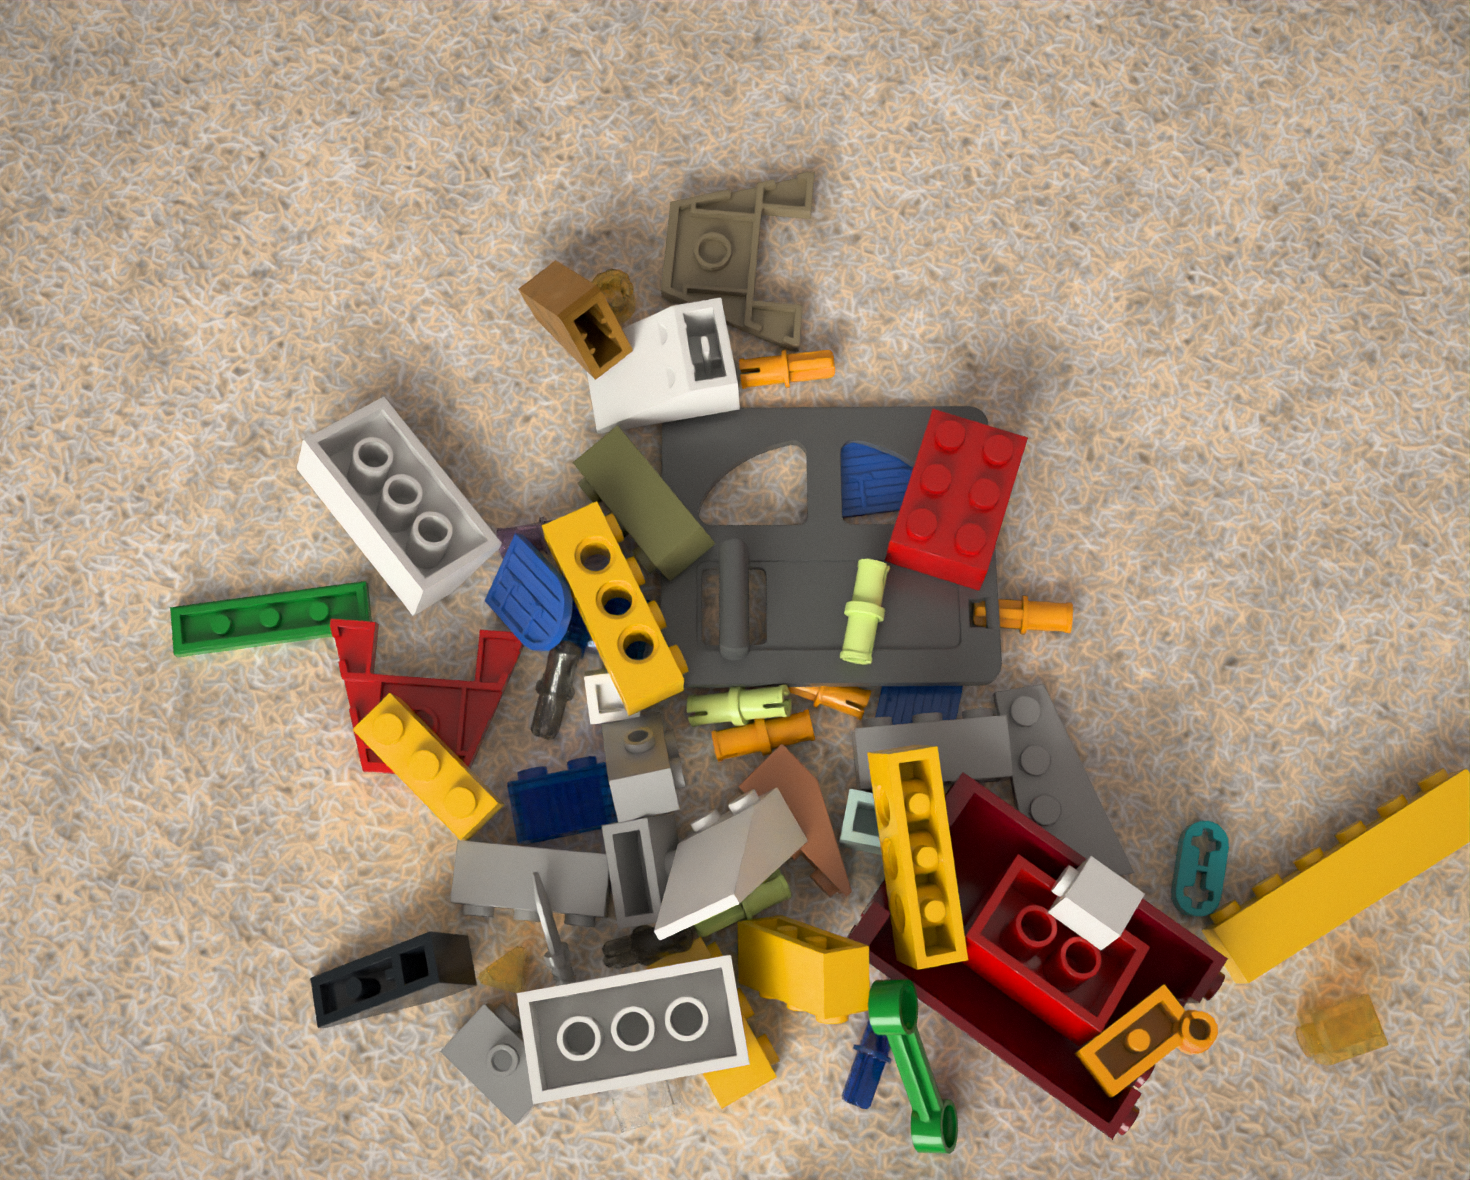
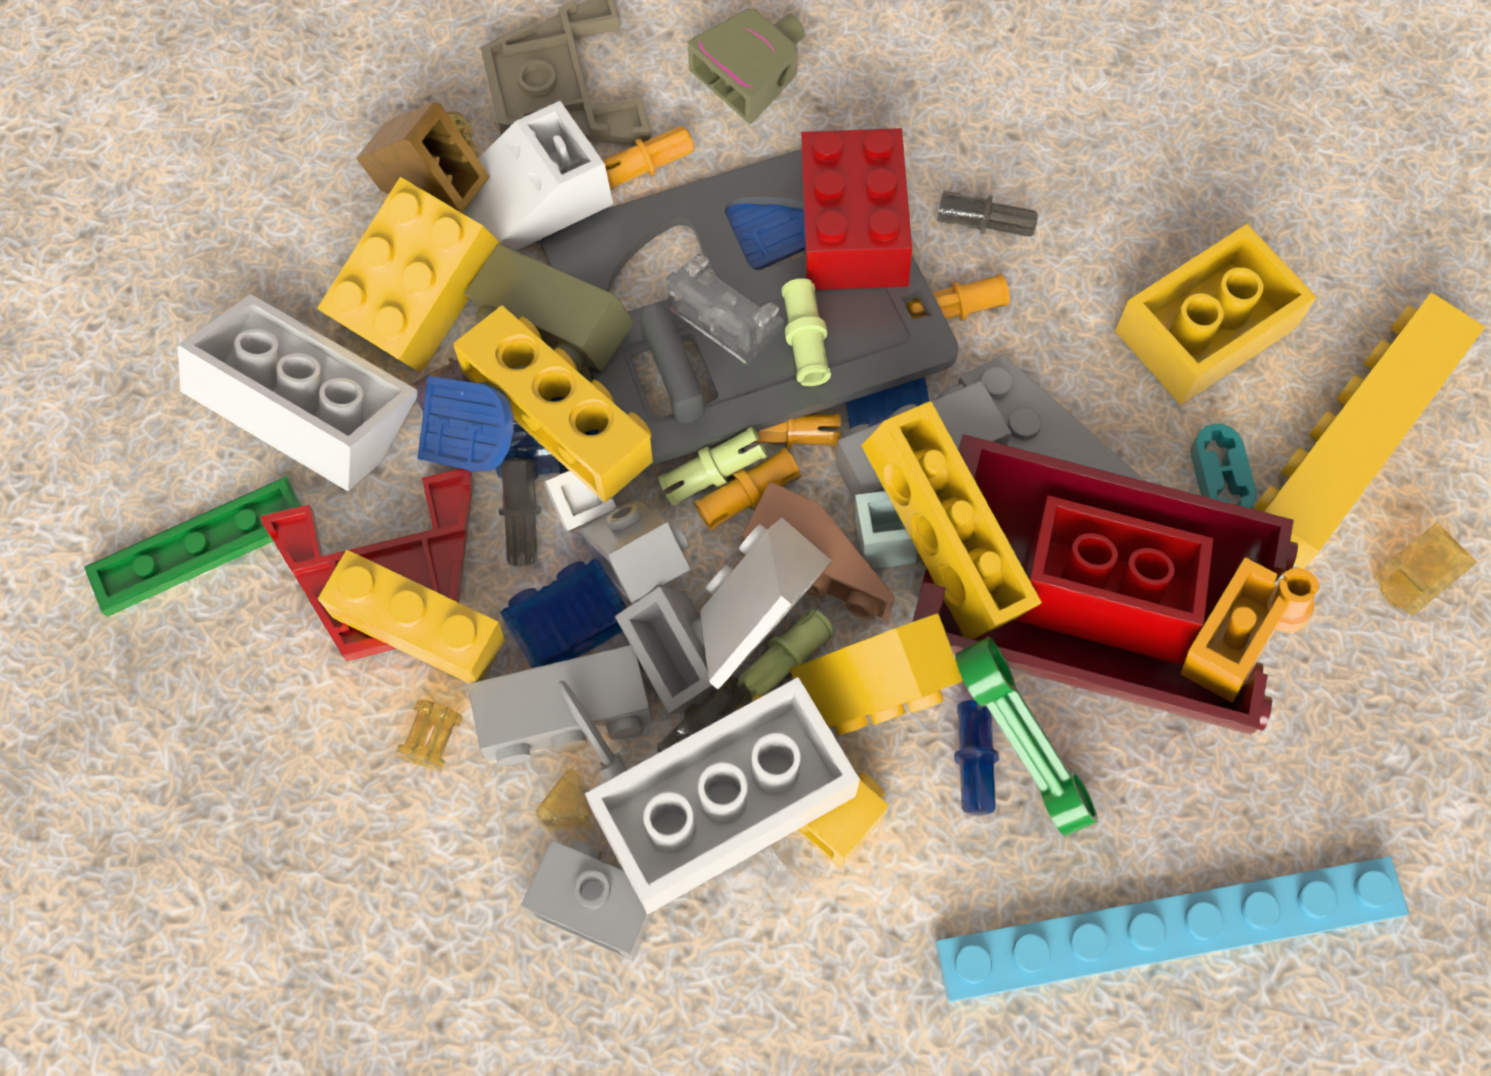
camera: 20 degrees left, 10 degrees down
(394, 979) = (445, 854): black slope -> none
(397, 874) = (429, 715): none -> clear yellow bush
(528, 430) = (409, 275): none -> yellow brick
(799, 560) = (721, 310): none -> clear hinge
(918, 298) = (747, 60): none -> olive torso
(1084, 536) = (985, 214): none -> clear smoke axle
(1094, 902) = (1143, 506): white brick -> none
(1253, 716) = (1214, 313): none -> yellow brick

